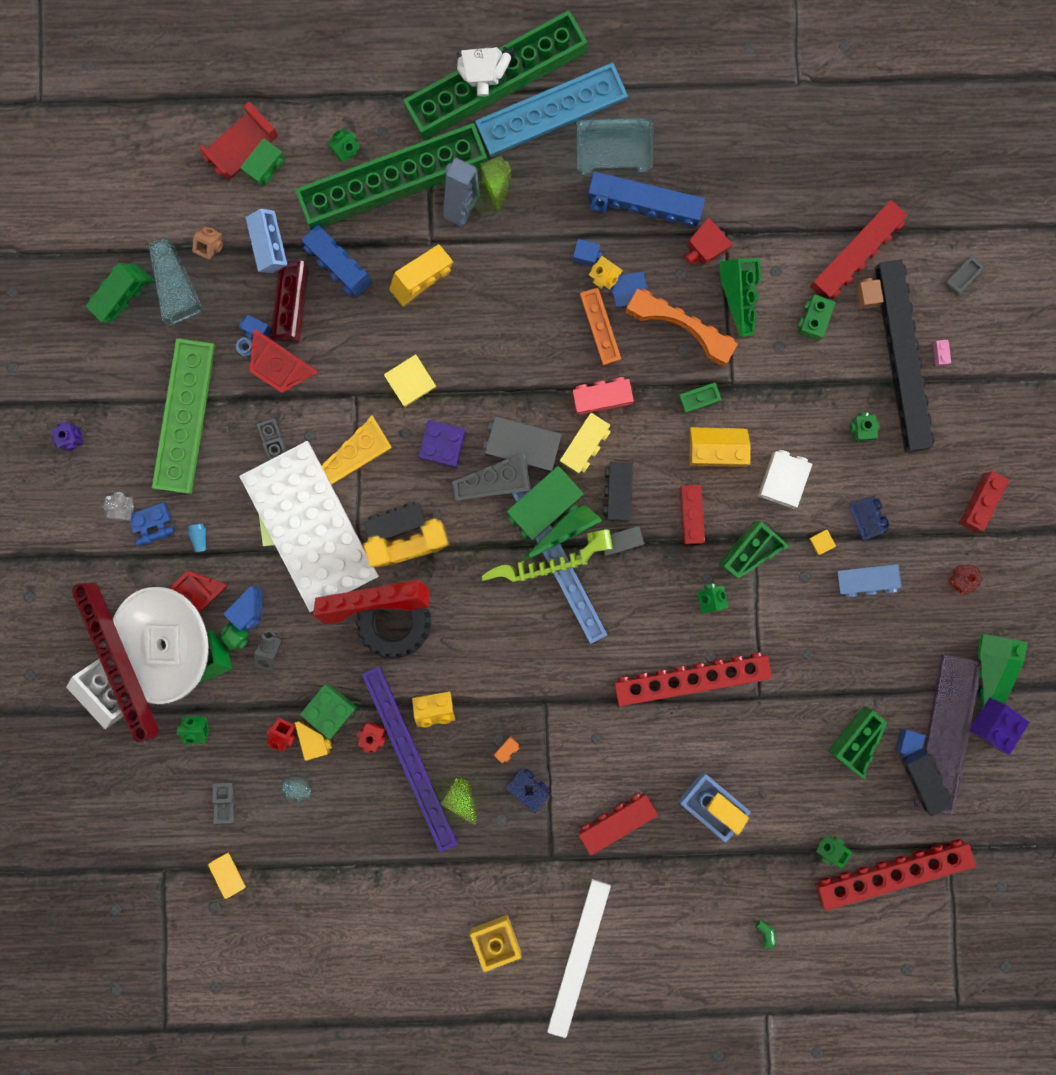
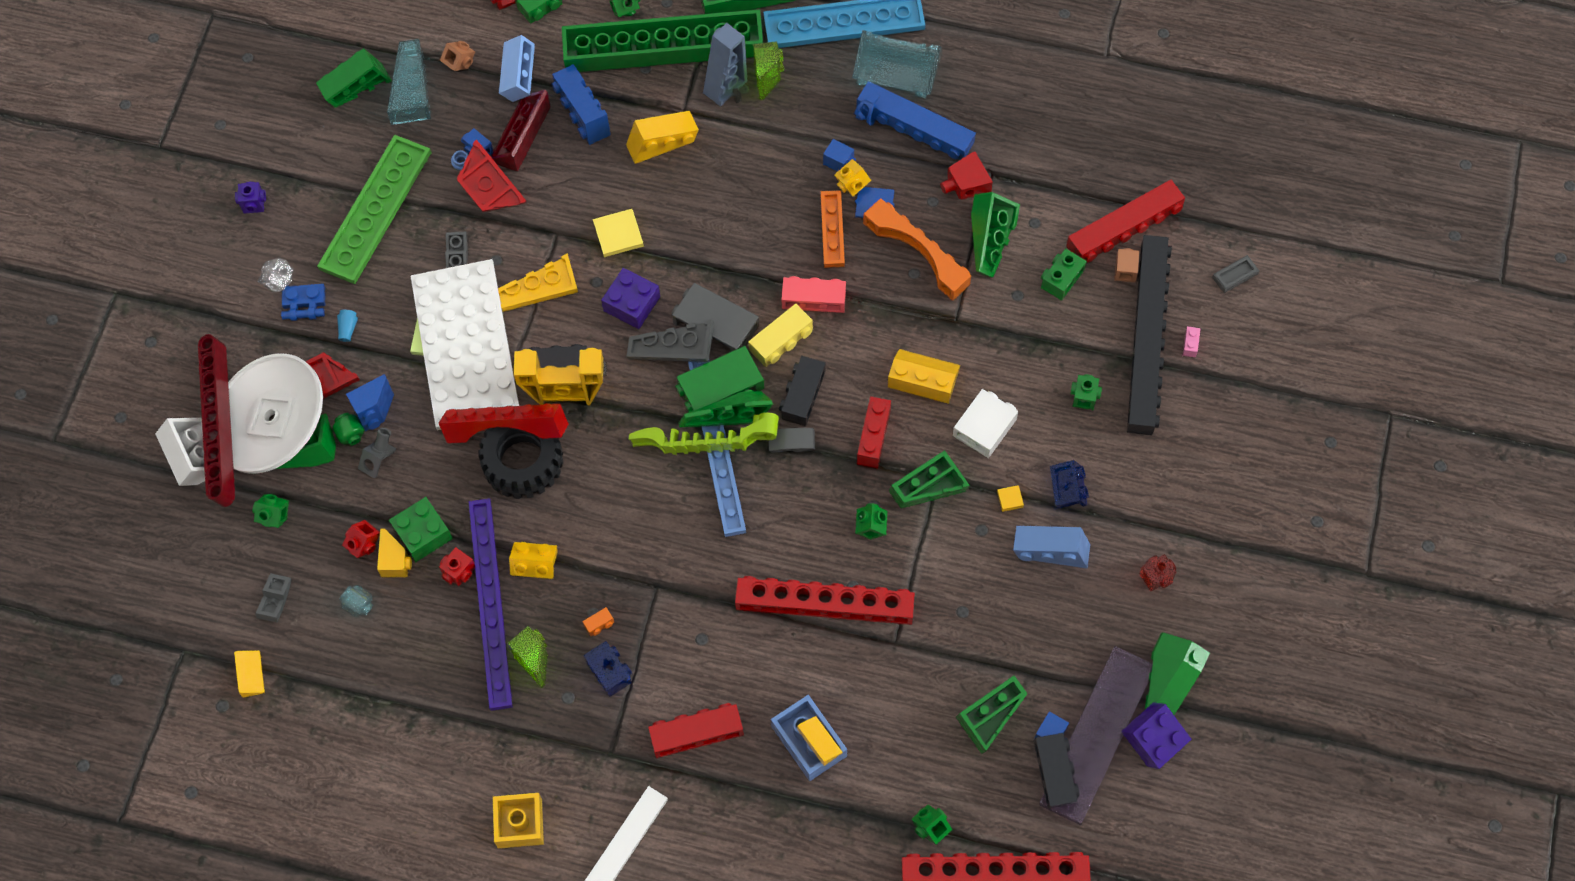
camera: 15 degrees right, 20 degrees down
(700, 397) = (917, 321): green plate -> none
(983, 502) = (1198, 499): red brick -> none

